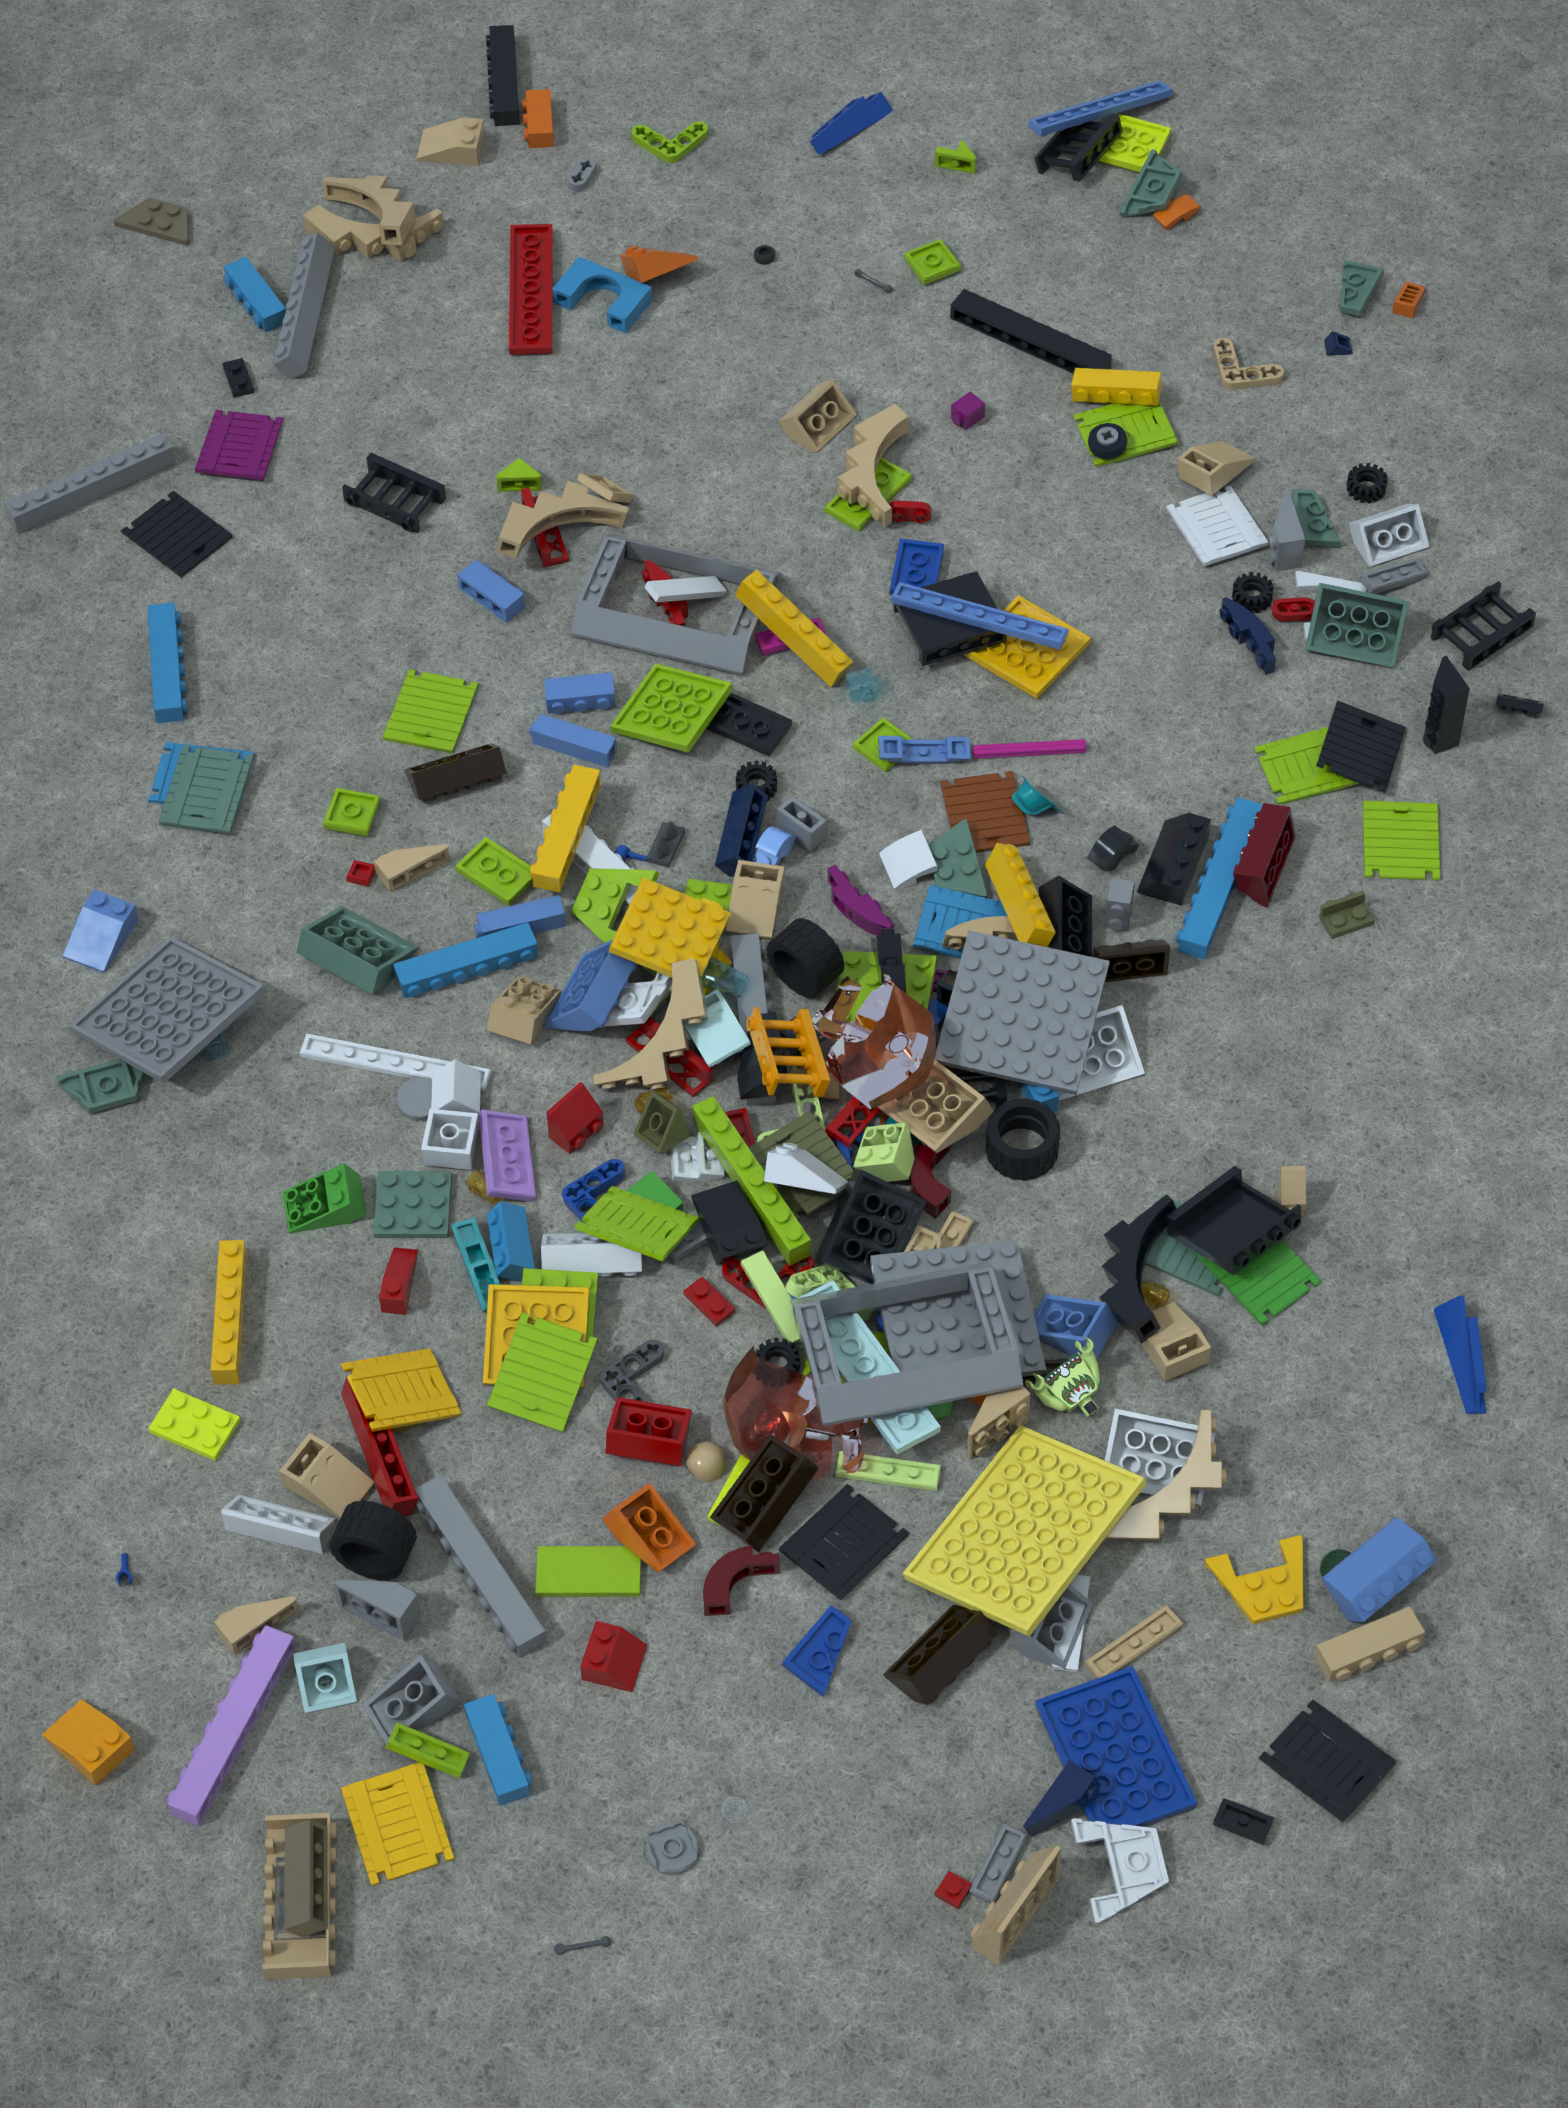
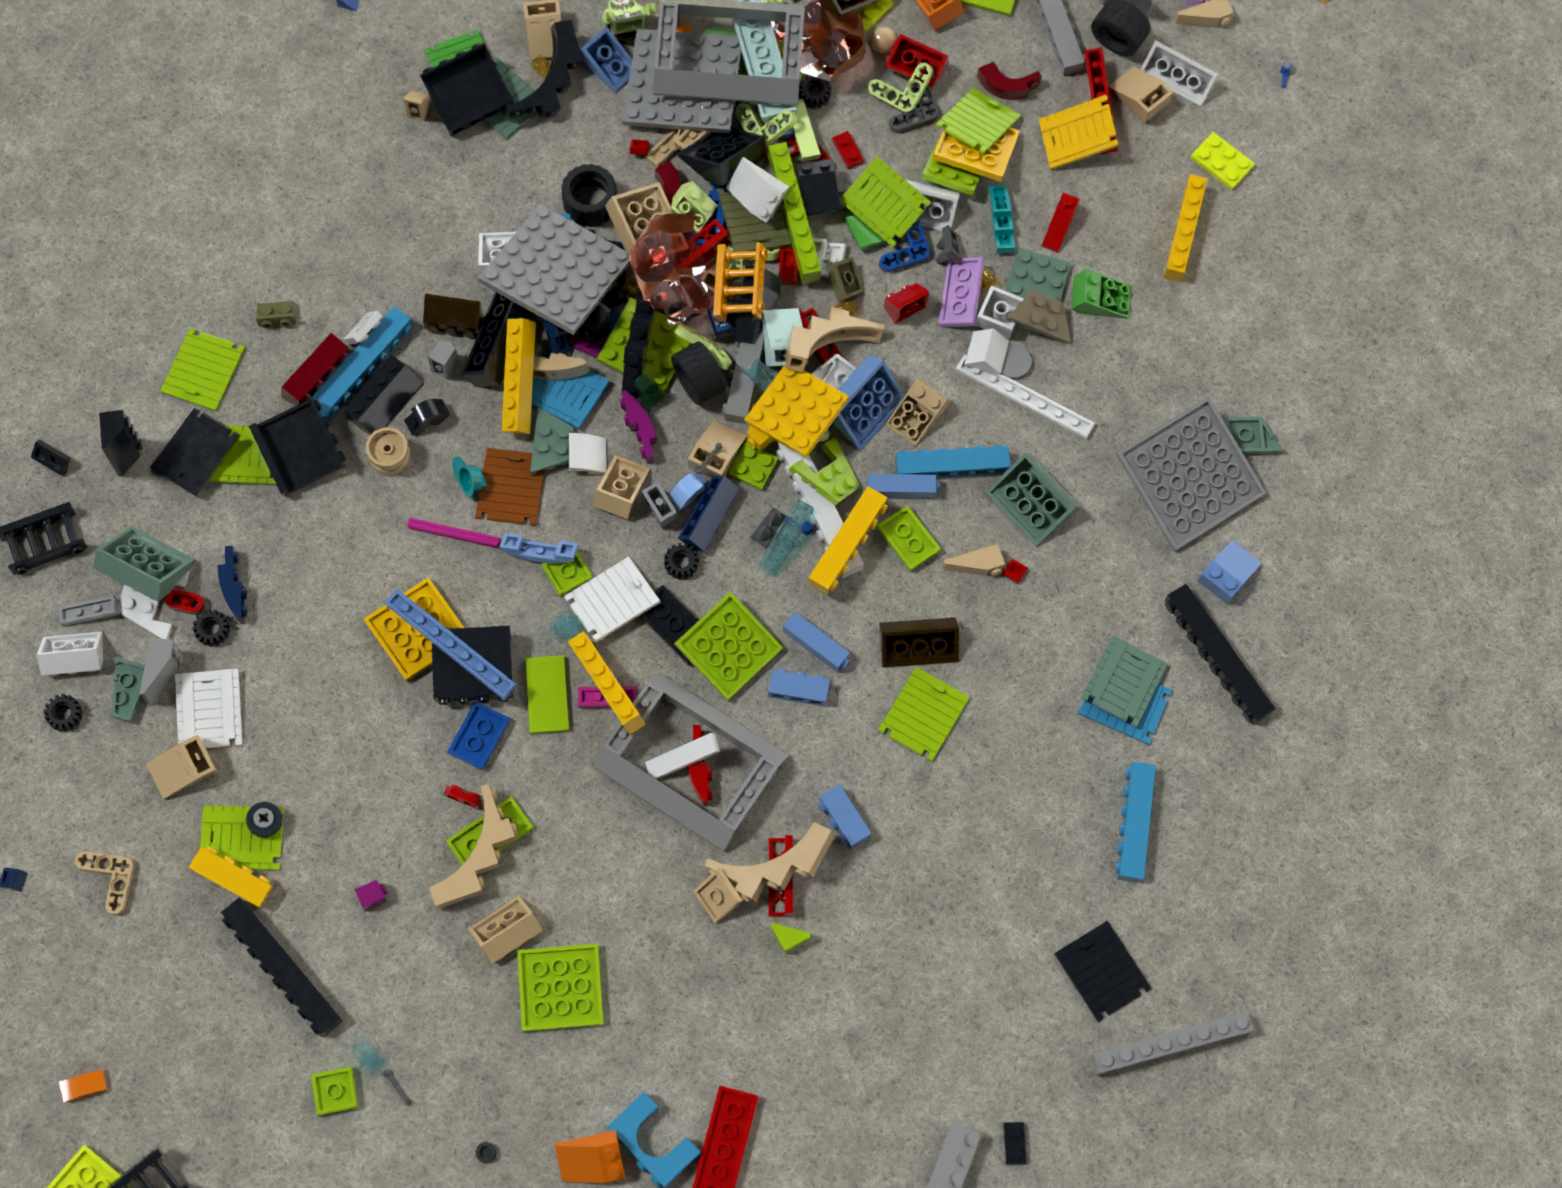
camera: 170 degrees left, 15 degrees up
(100, 843) = (1219, 654): none -> black brick
(239, 445) = (1028, 1058): magenta door -> none
(352, 812) = (1010, 628): lime plate -> none
(395, 475) = (897, 971): black fence -> none
(396, 1142) = (1042, 315): none -> dark tan wing
(510, 1240) = (976, 222): dark azure brick -> none
(520, 1436) = (1006, 87): none -> dark red arch
(534, 1199) = (951, 243): none -> dark grey tile
(641, 831) = (785, 537): none -> clear light blue slope
(651, 1378) = (907, 94): none -> yellowish green beam
(742, 387) = (560, 987): none -> lime plate
(767, 855) = (698, 469): none -> dark grey hinge
(788, 1001) = (717, 351): none -> yellowish green beam
(820, 725) = (612, 599): none -> white door
(855, 836) = (620, 487): none -> tan slope
(858, 626) = (547, 694): none -> lime tile
(859, 936) = (648, 391): none -> clear green piece
(911, 294) = (369, 1058): none -> clear light blue plate
(984, 1226) = (639, 147): none -> red tile
(1140, 798) = (388, 451): none -> tan wheel
(1152, 187) = (92, 1116): sand green wing -> none
(1232, 914) = (360, 330): none -> white plate
(1247, 771) = (298, 446): none -> black panel

